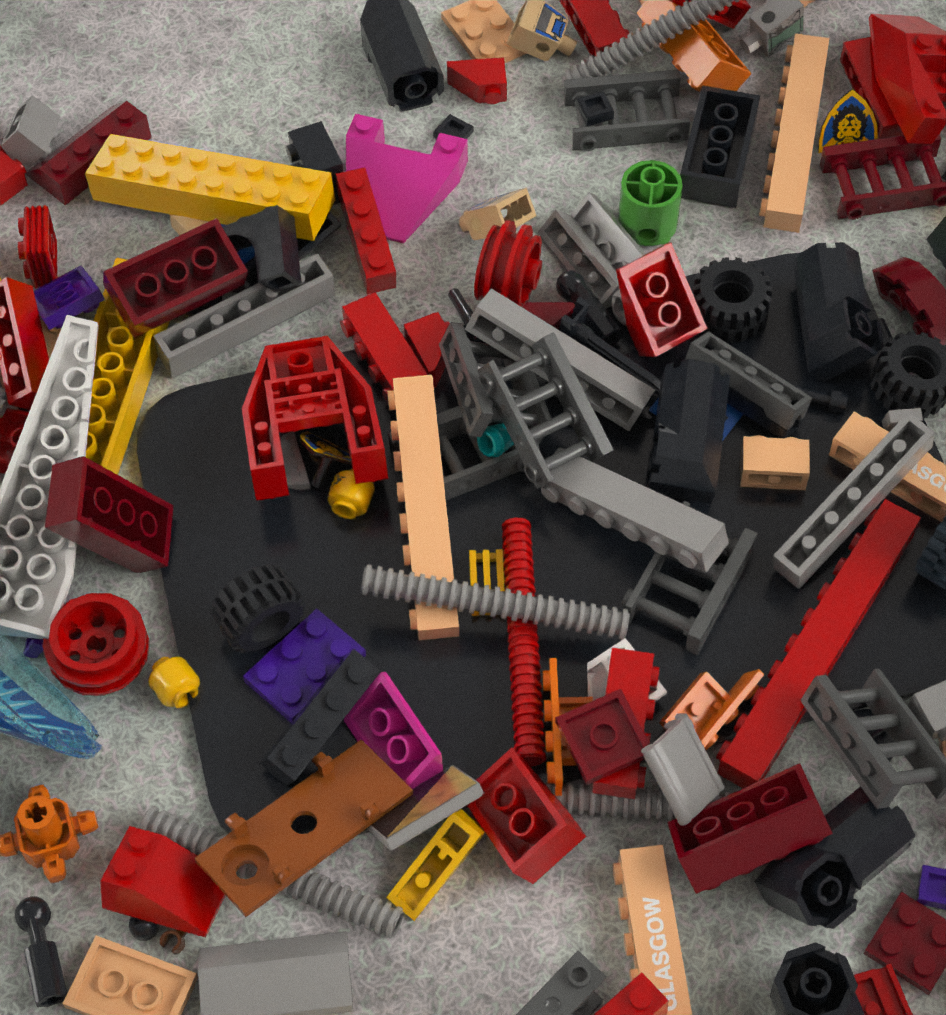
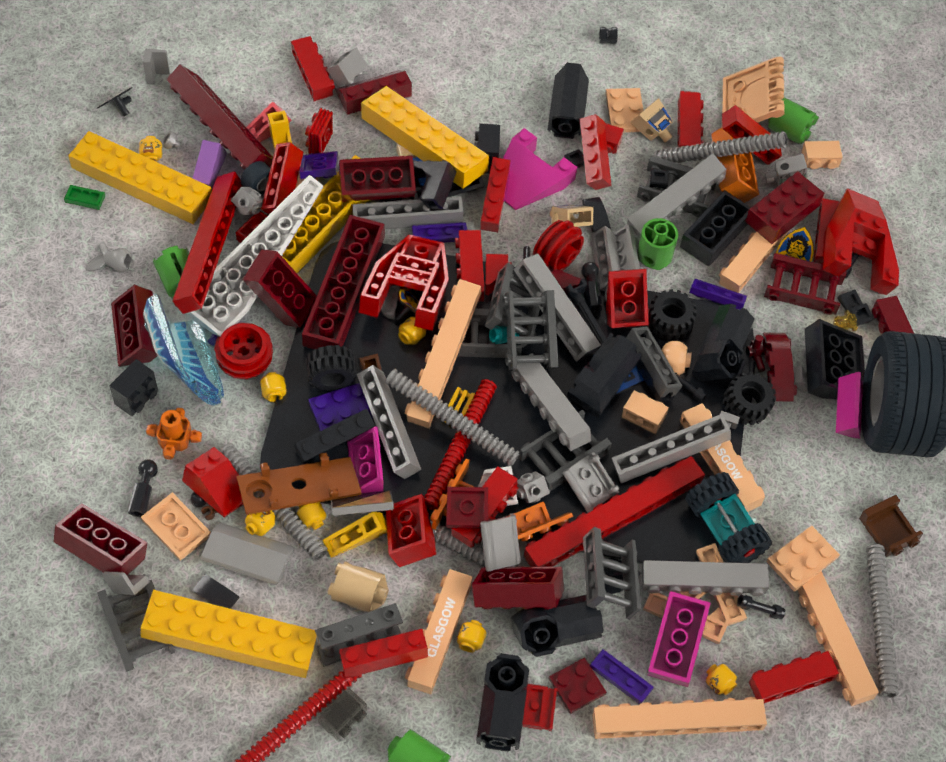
camera: 20 degrees right, 0 degrees up
(204, 468) = (344, 283): none -> dark red brick
(270, 920) = (260, 522): none -> yellow head
(309, 323) = (439, 232): none -> dark purple plate
(311, 576) = (368, 361): none -> reddish brown slope
(349, 865) = (312, 515): none -> yellow head
(395, 654) = (389, 422): none -> light grey brick
(482, 106) = (595, 152): none -> brick
(494, 950) = (359, 587): none -> tan cylinder
(542, 201) = (600, 216): none -> black slope
(642, 118) = (680, 193): none -> light grey brick
(677, 656) = (532, 487): none -> light grey brick
(710, 943) = (471, 636): none -> yellow head
(758, 606) = (590, 481): none -> light grey piece
(772, 242) = (717, 294): none -> dark purple plate
(775, 355) = (677, 356): none -> light nougat plant
(803, 75) = (784, 207): none -> dark red brick
(879, 300) = (756, 350): none -> dark red piece

